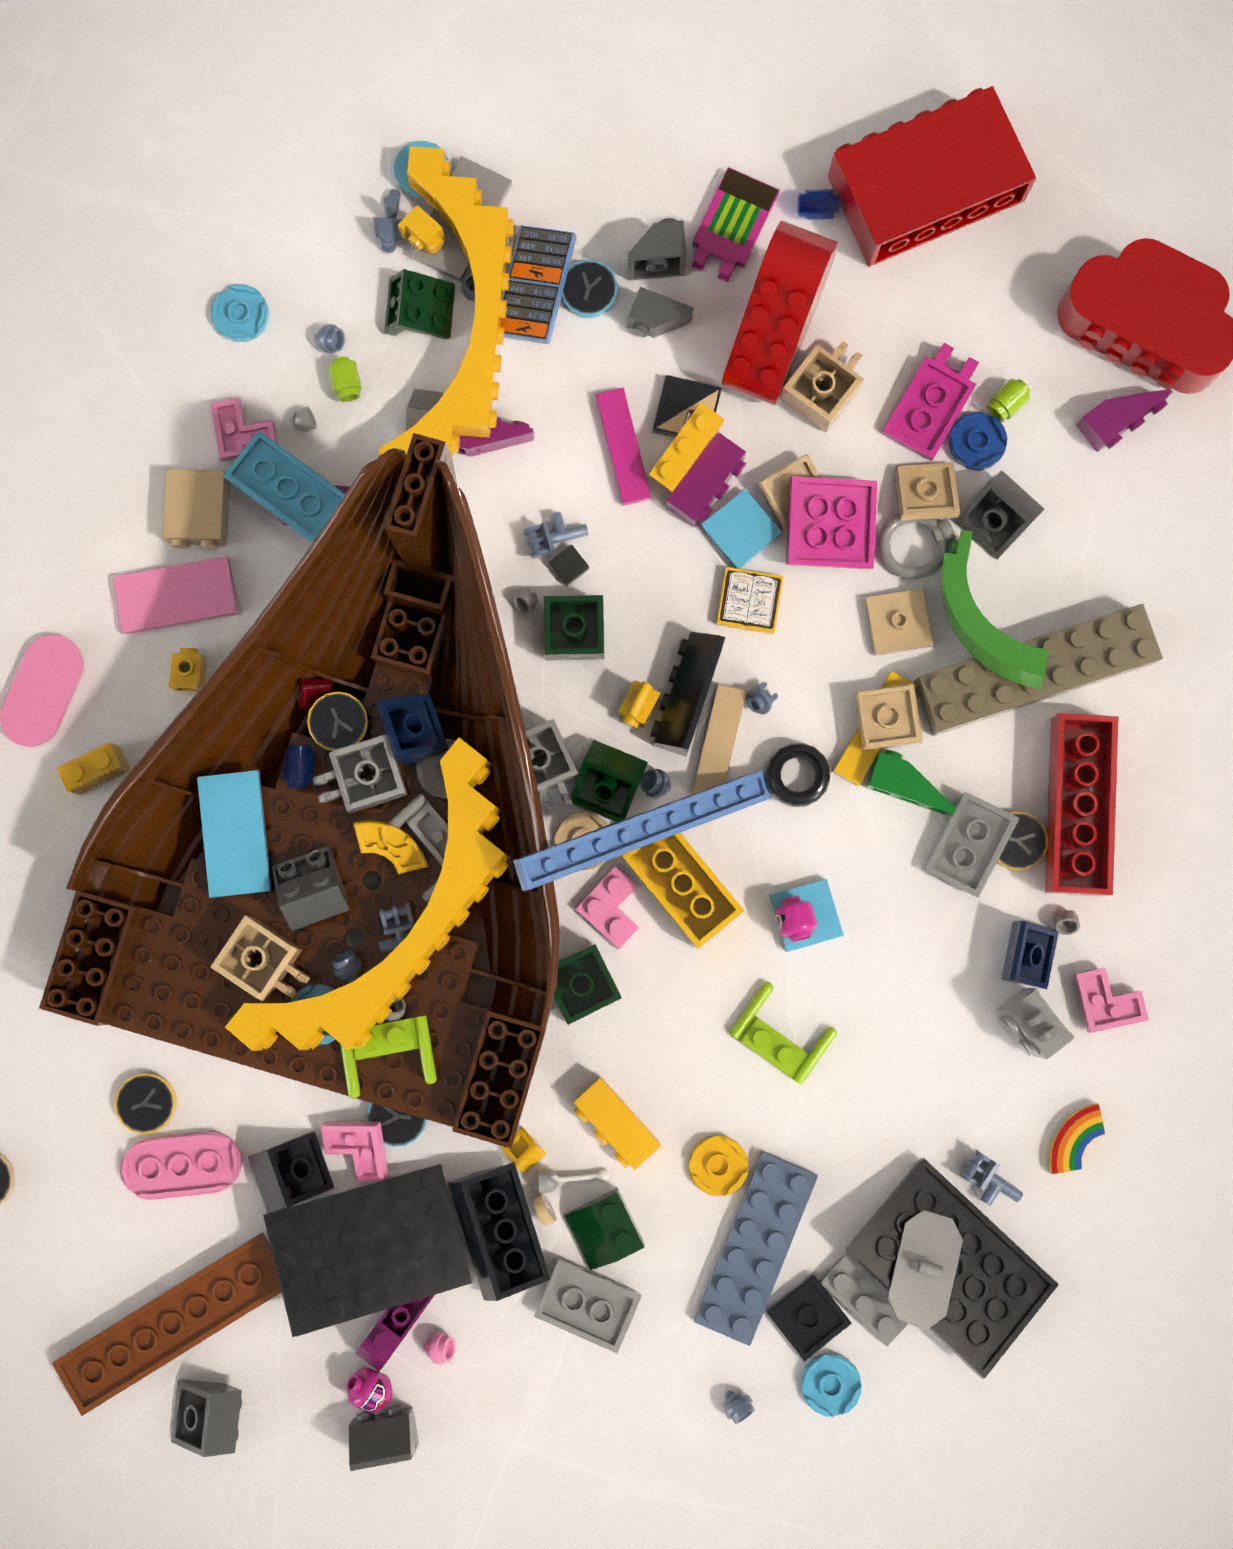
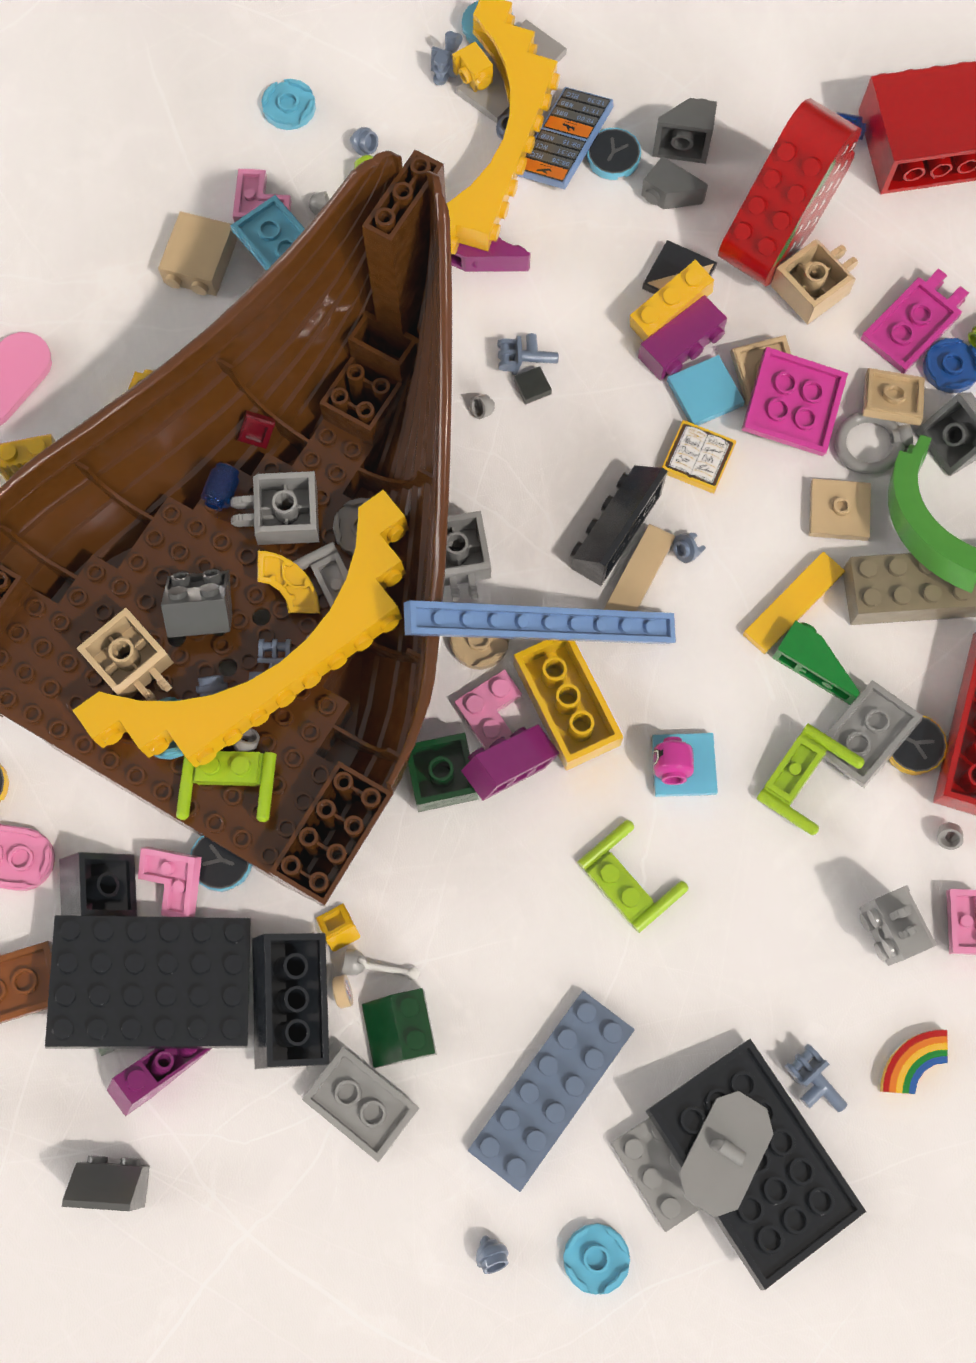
camera: 10 degrees right, 10 degrees down
(175, 595) = (150, 324): bright pink tile -> none
(234, 834) = (140, 536): medium azure tile -> none
(337, 721) = (270, 453): black tile -> none
(369, 1390) = (109, 1132): dark pink head -> none
(412, 728) = (339, 476): dark blue slope -> none
(419, 304) = (455, 130): dark green bracket -> none
(440, 1348) = (196, 1108): bright pink plate -> none
(574, 627) = (522, 437): dark green brick -> none
(608, 781) = (518, 580): dark green slope -> none
(616, 1124) = (439, 922): yellow brick -> none
(623, 446) = (611, 294): dark pink tile -> none
(638, 704) = (567, 522): yellow brick -> none
(643, 959) = (509, 761): none -> magenta brick
(655, 783) = (565, 597): sand blue plate -> none
(718, 1165) = (533, 993): yellow tile -> none
(733, 222) = (757, 127): tile -> none
(805, 752) = (712, 604): black wheel -> none
(808, 1317) = (590, 1178): black tile -> none
(888, 717) = (810, 591): tan plate -> none
(912, 897) = (797, 769): none -> lime plate
(1029, 954) = (905, 857): dark blue slope -> none

